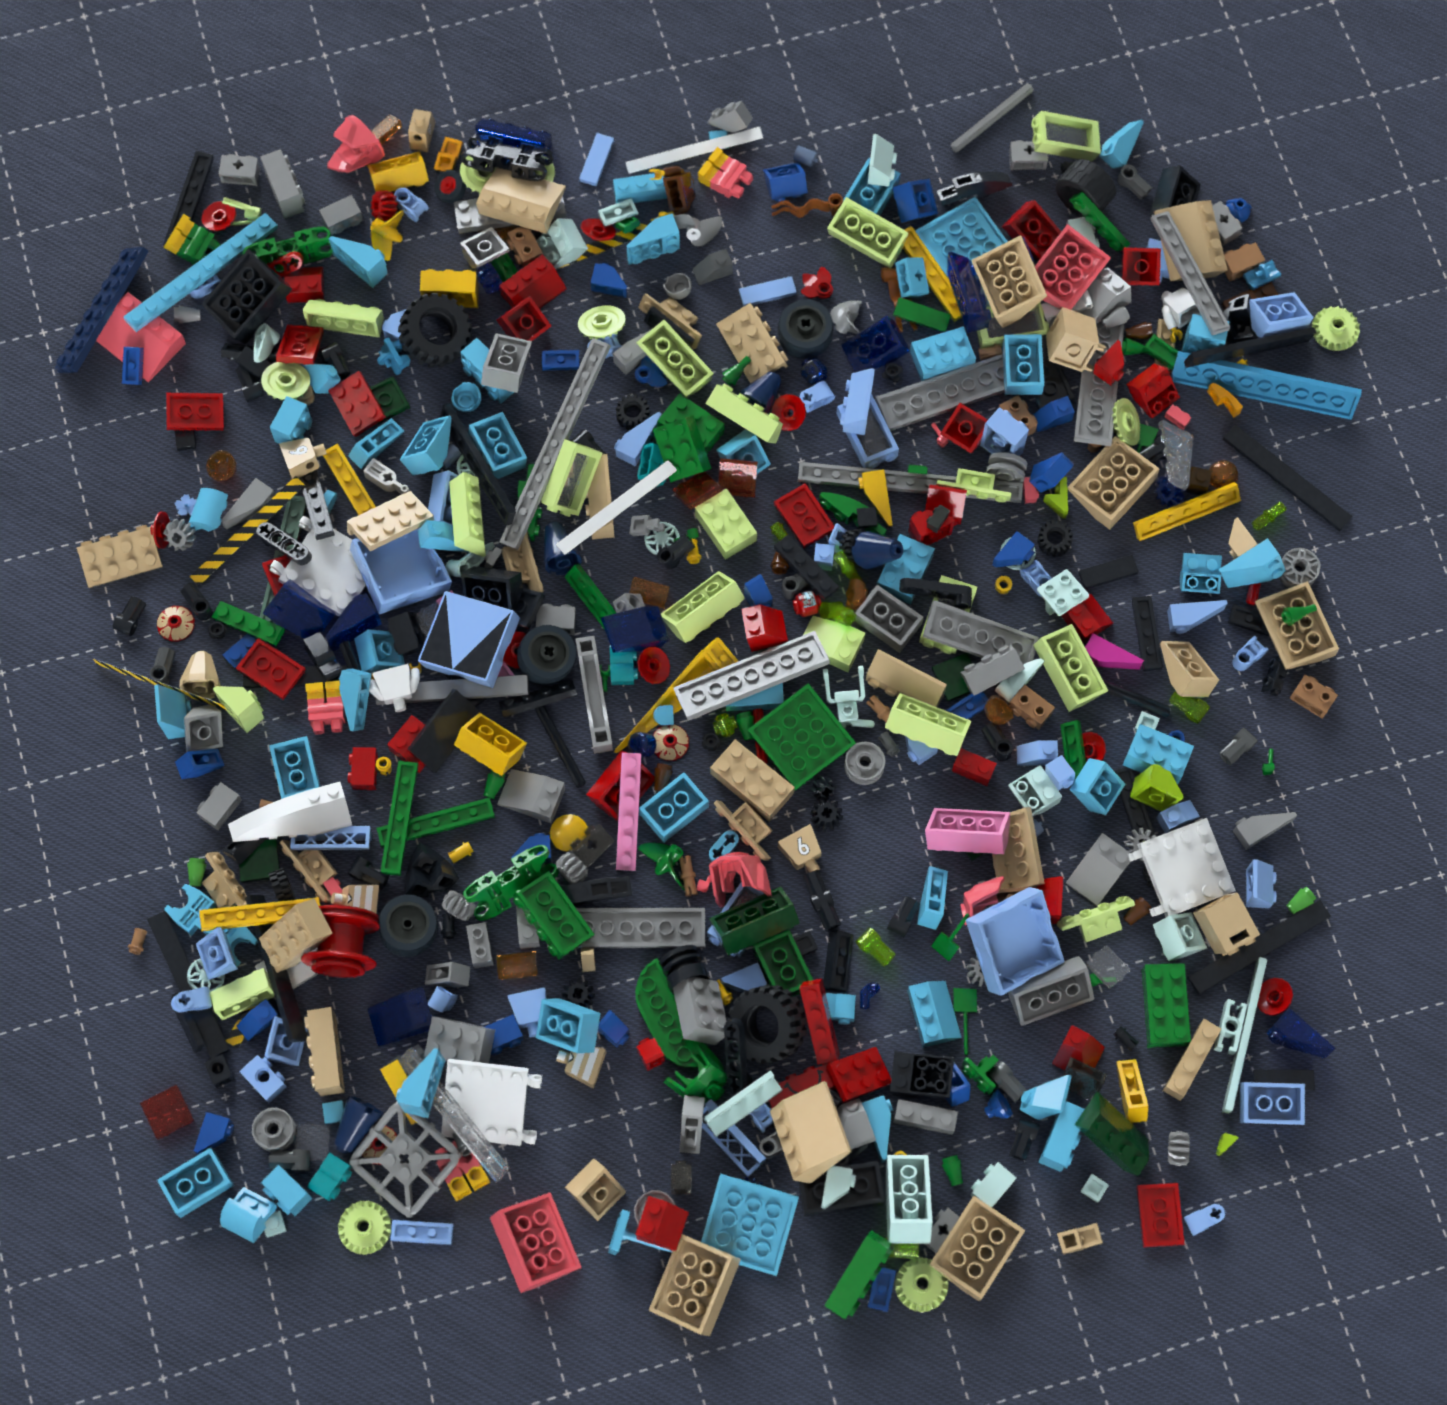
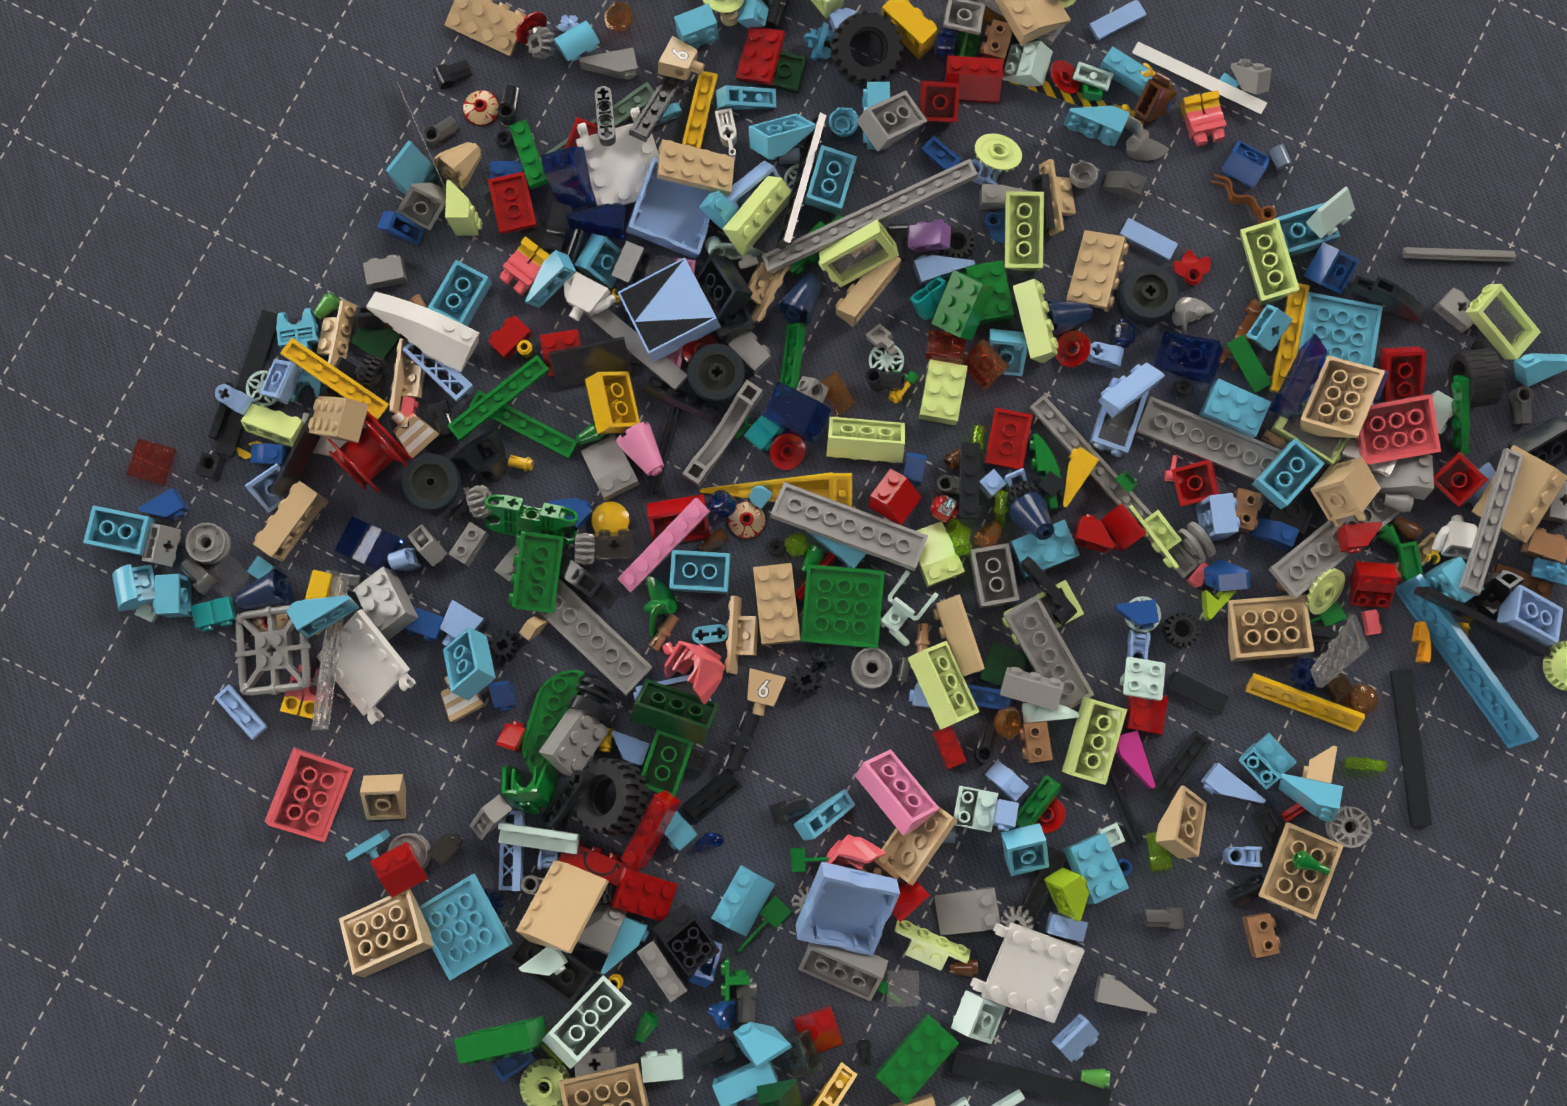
camera: 45 degrees right, 10 degrees up
(137, 941) = (241, 320): medium nougat pin -> none
(238, 1163) = (161, 545): none -> light grey brick
(246, 531) = (592, 82): sticker -> none
(268, 1089) = (229, 490): light blue brick -> none
(374, 1237) = (218, 671): yellowish green gear -> none
(517, 965) = (483, 582): clear orange slope -> none
(545, 757) = (642, 448): none -> bright pink cone
(607, 281) = (1033, 123): blue slope -> none
(609, 422) = (929, 236): none -> medium lavender brick
(616, 507) = (869, 307): white sticker -> none
(733, 374) = (1059, 281): green cone -> none
(872, 943) = (747, 811): clear neon green piece -> none
(938, 518) = (1100, 536): pearl dark grey piece -> none
(1007, 580) = (1113, 629): yellow axle -> none
(1225, 919) = (1020, 1044): tan container -> none
(1268, 768) = (1172, 955): green hand -> none

